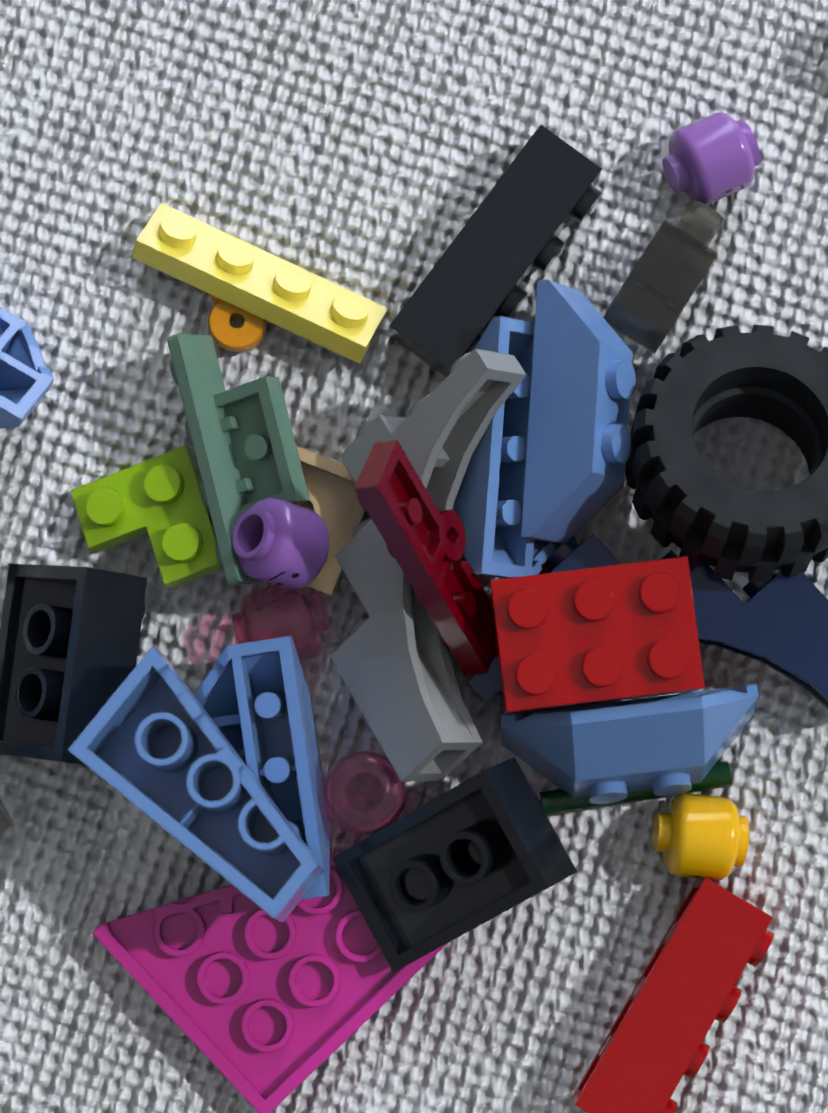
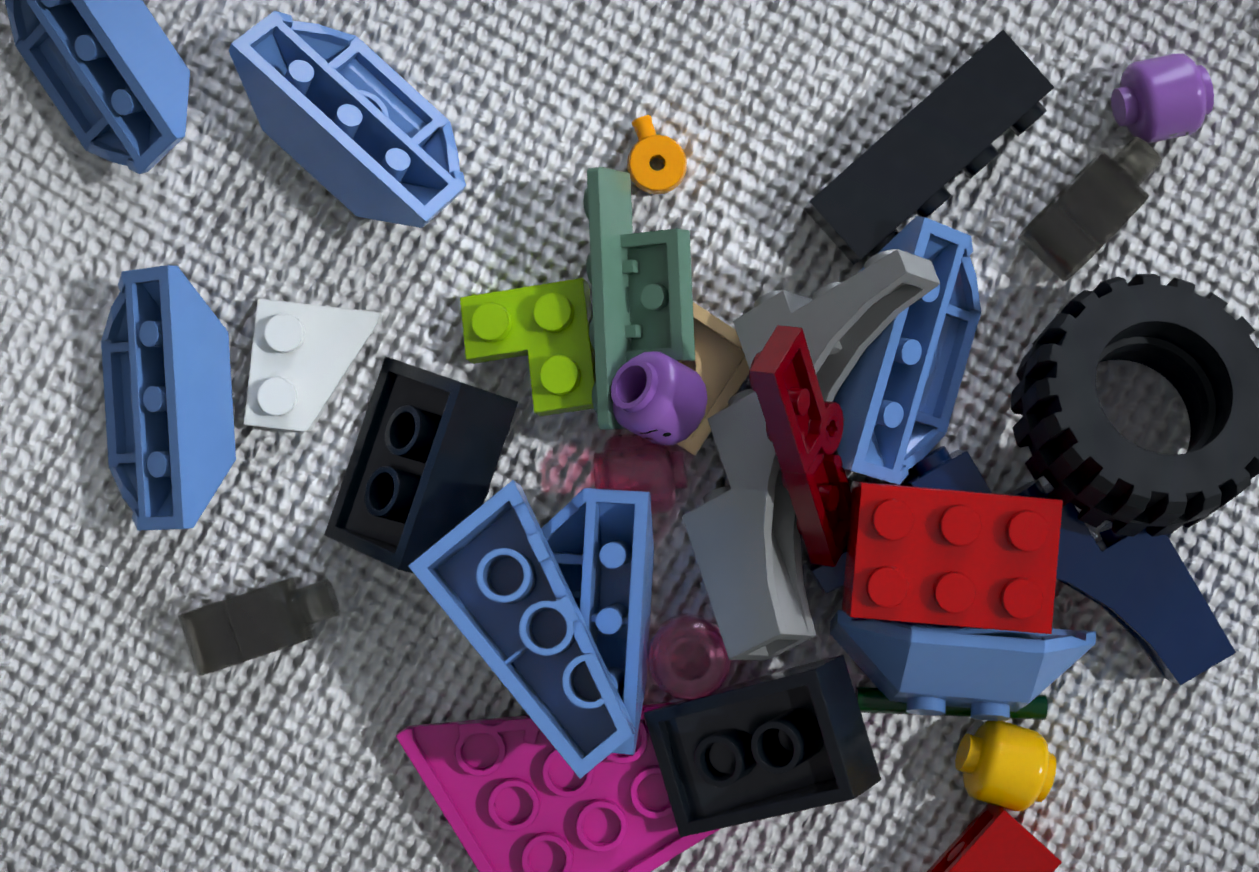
camera: 15 degrees right, 5 degrees up
(259, 282) = (687, 129): light yellow plate -> none
(575, 415) = (977, 330): medium blue wedge -> none

